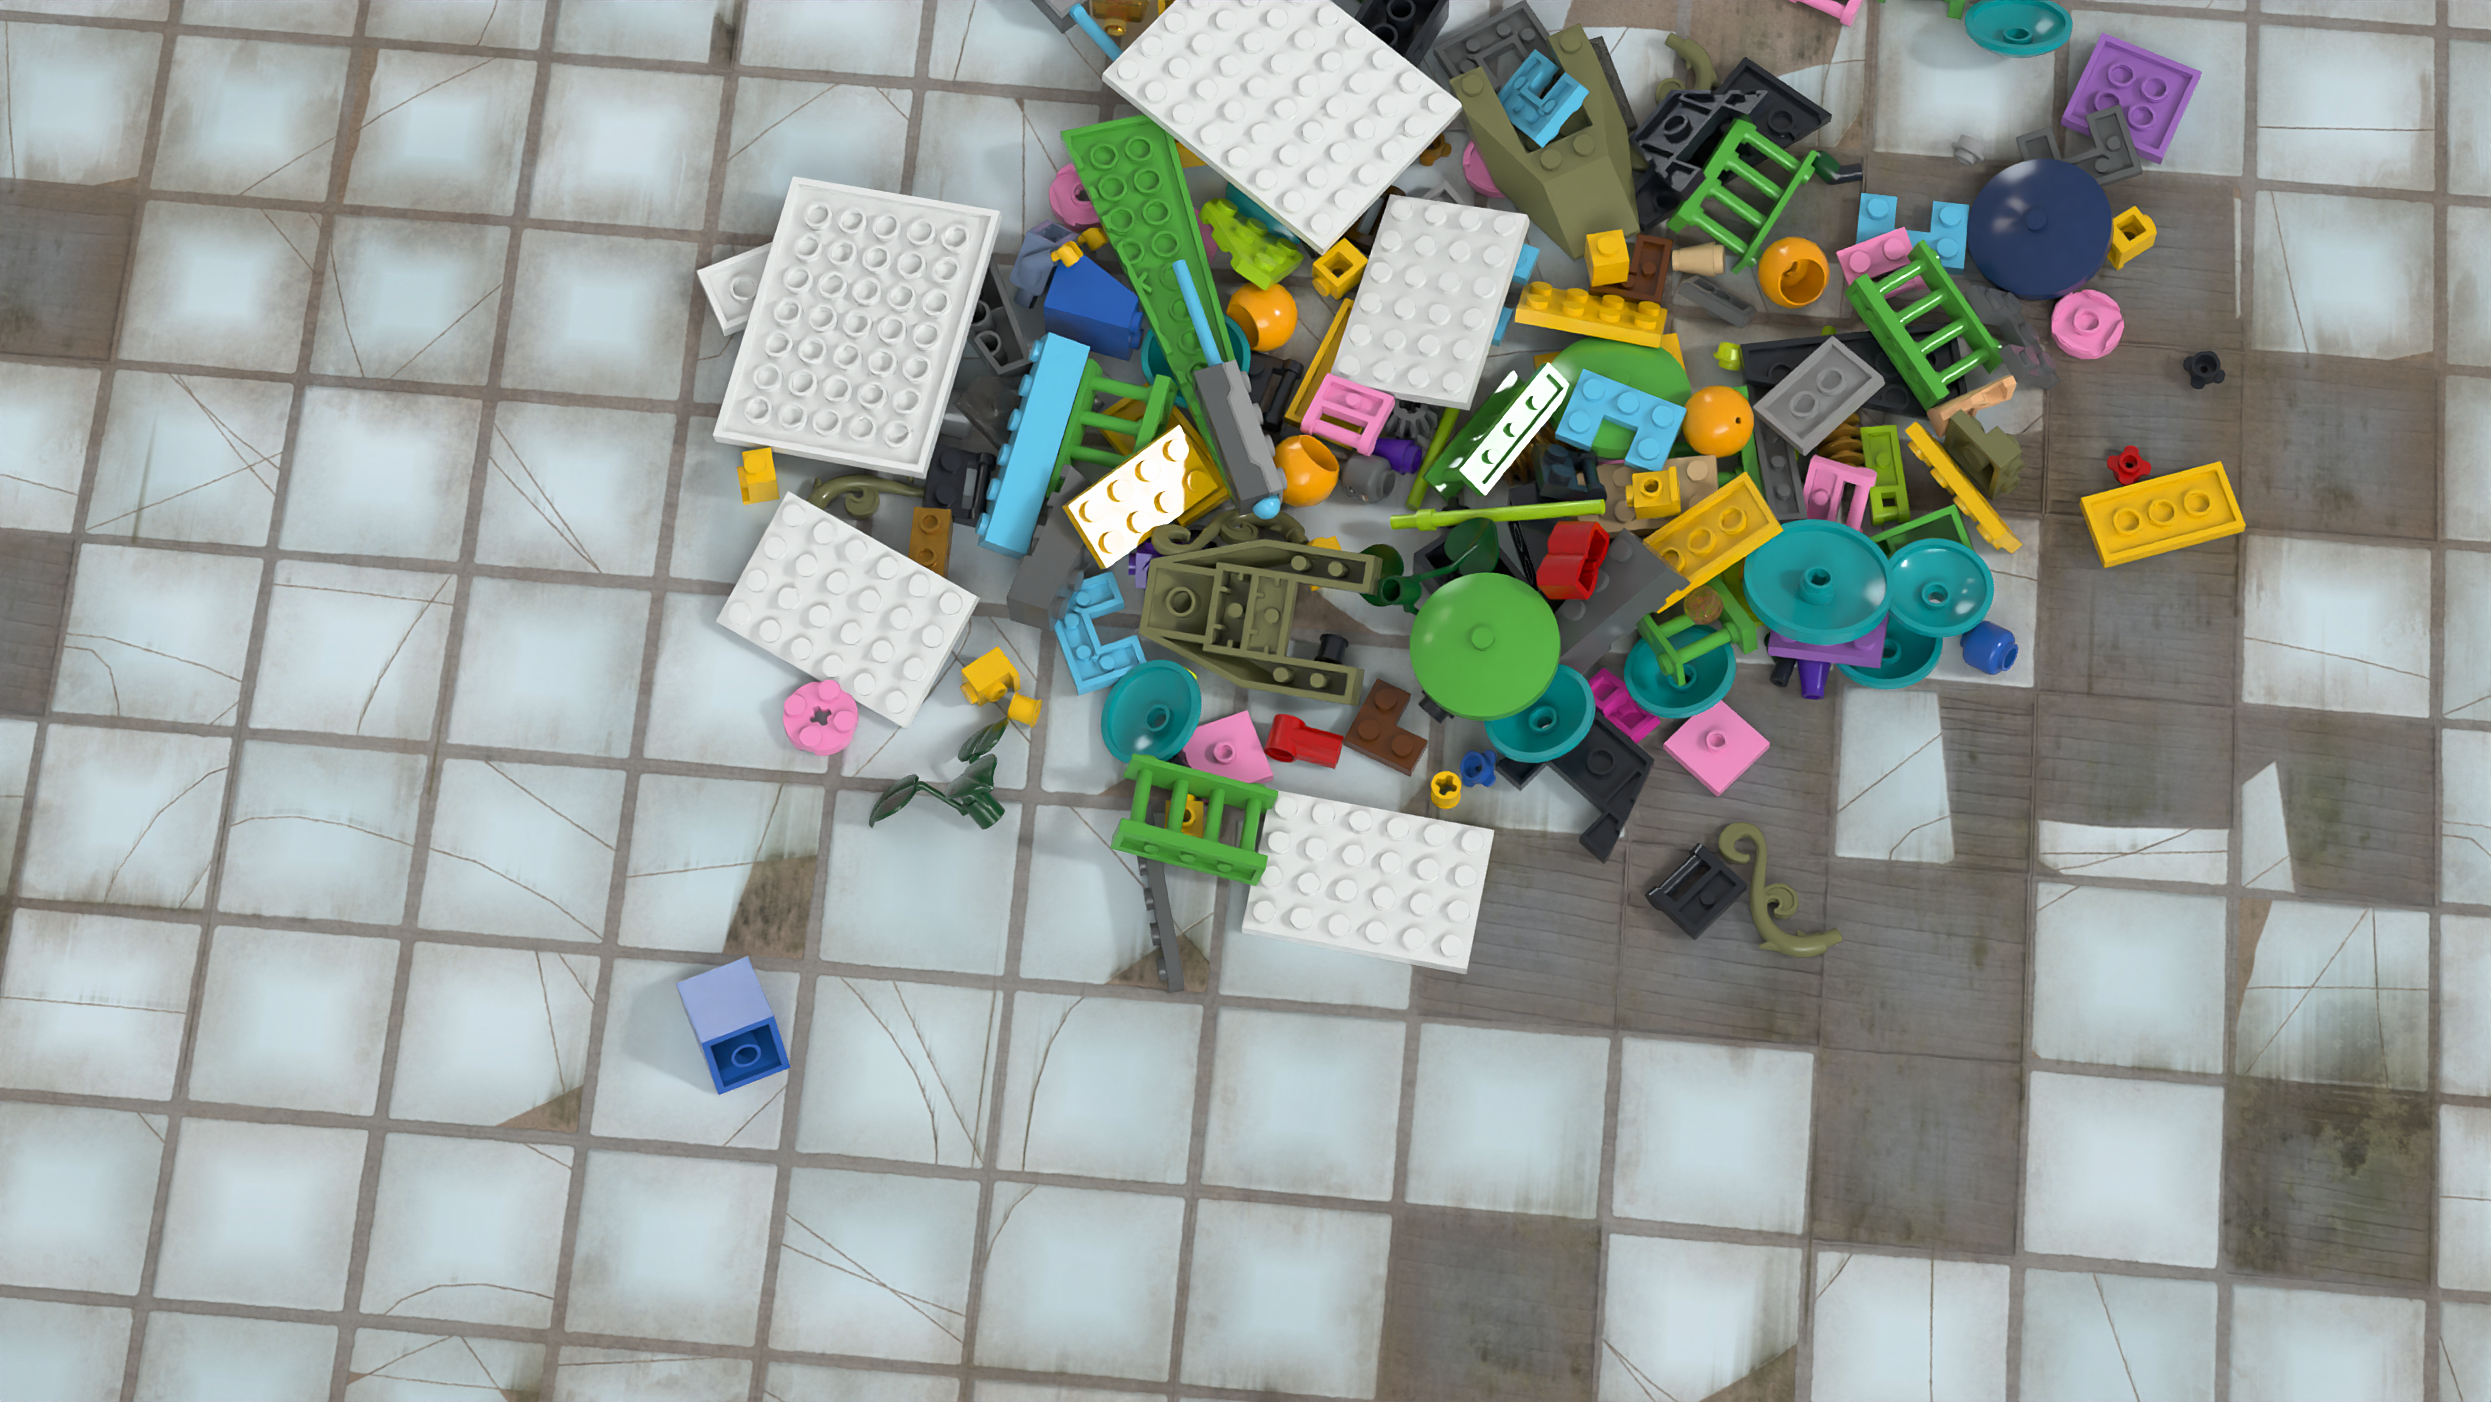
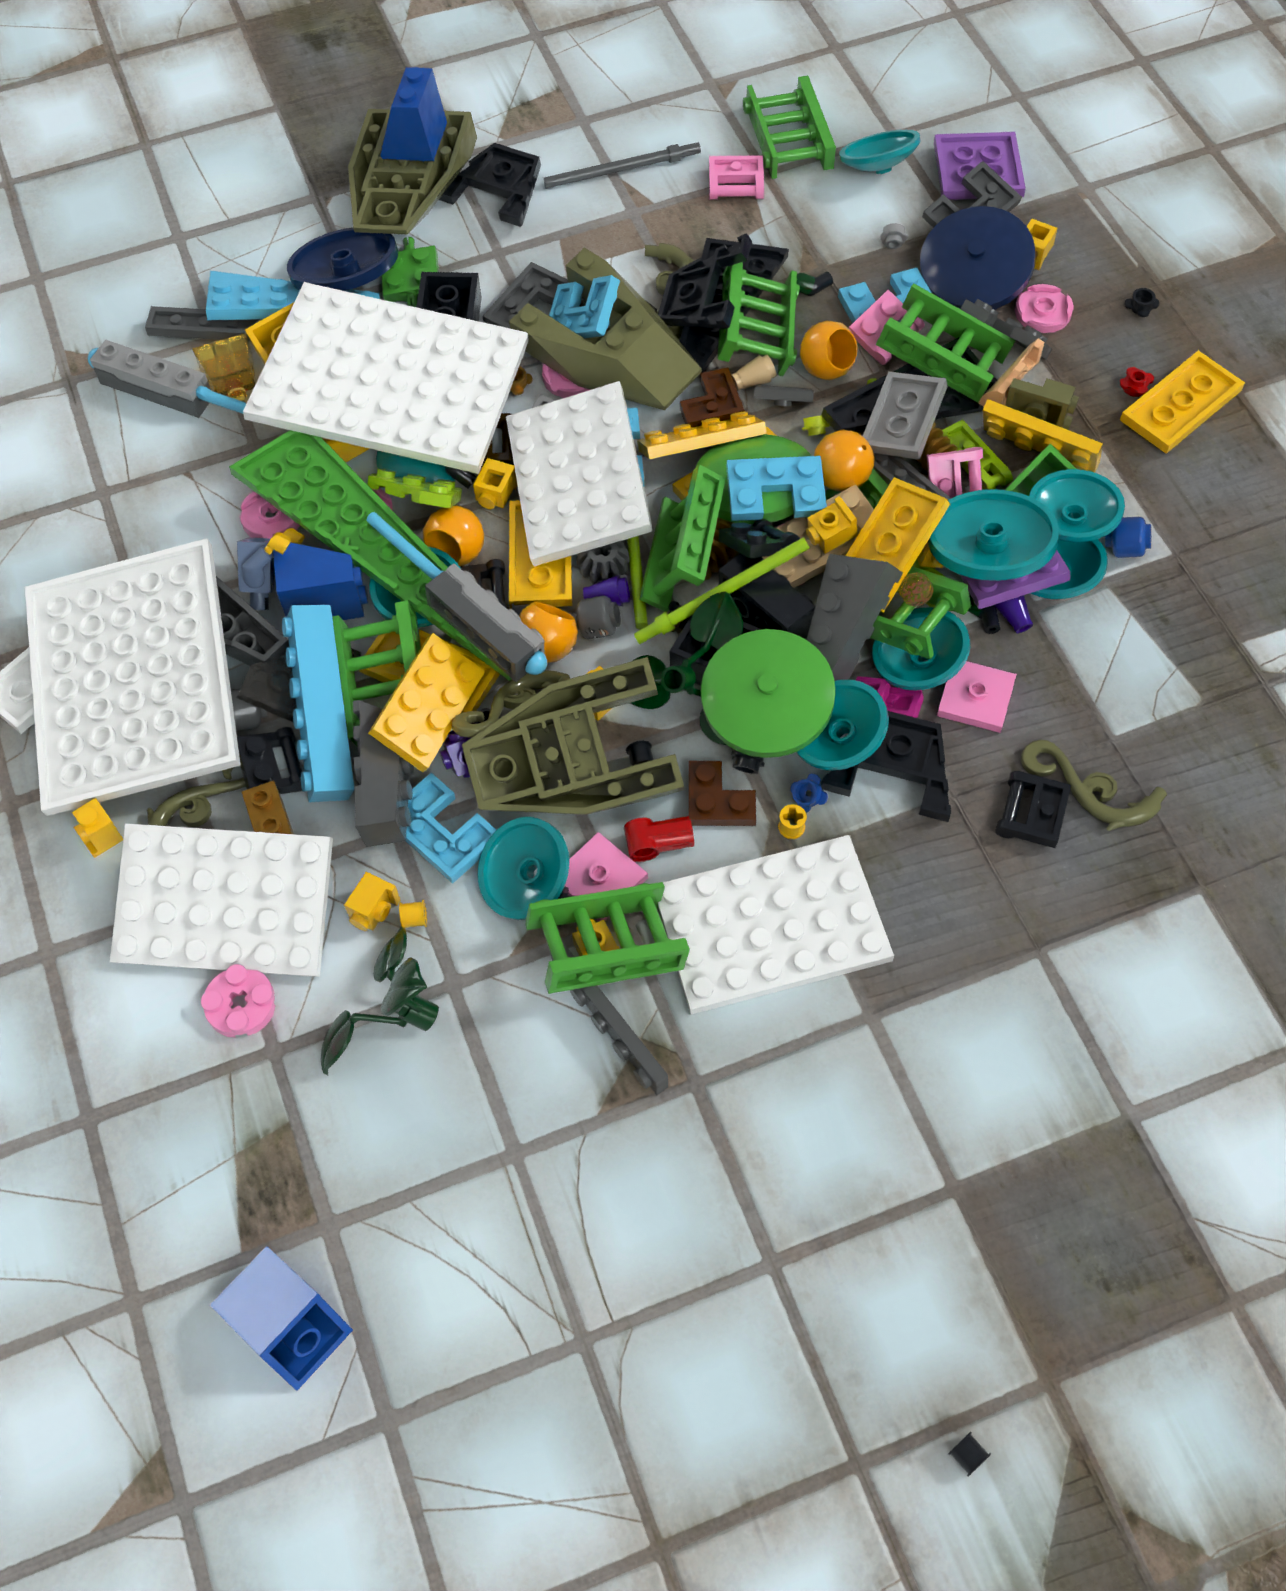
camera: 25 degrees left, 5 degrees down
(1351, 404) = (559, 566): bright pink plate -> none
(1572, 560) = (804, 594): red brick -> none
(1606, 258) = (691, 391): yellow brick -> none

